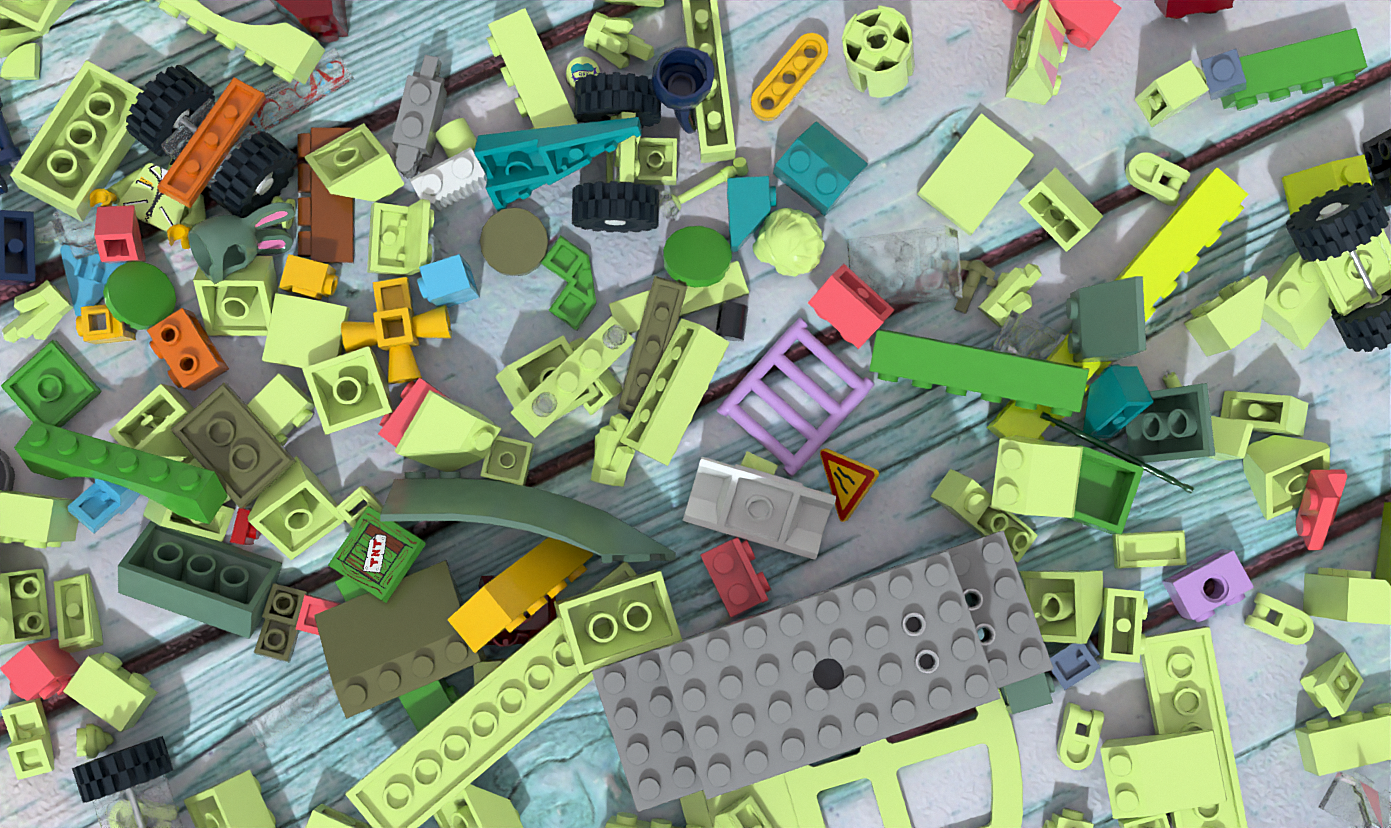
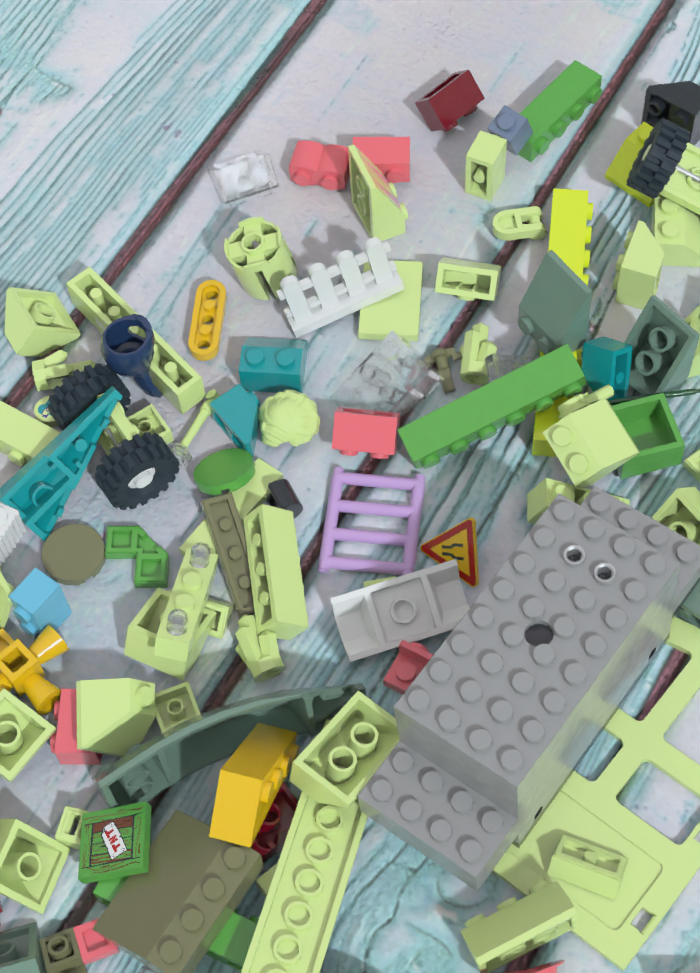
camera: 25 degrees left, 25 degrees down
(931, 142) = (345, 298): none -> white fence
(1049, 427) = (581, 401): none -> yellowish green plate

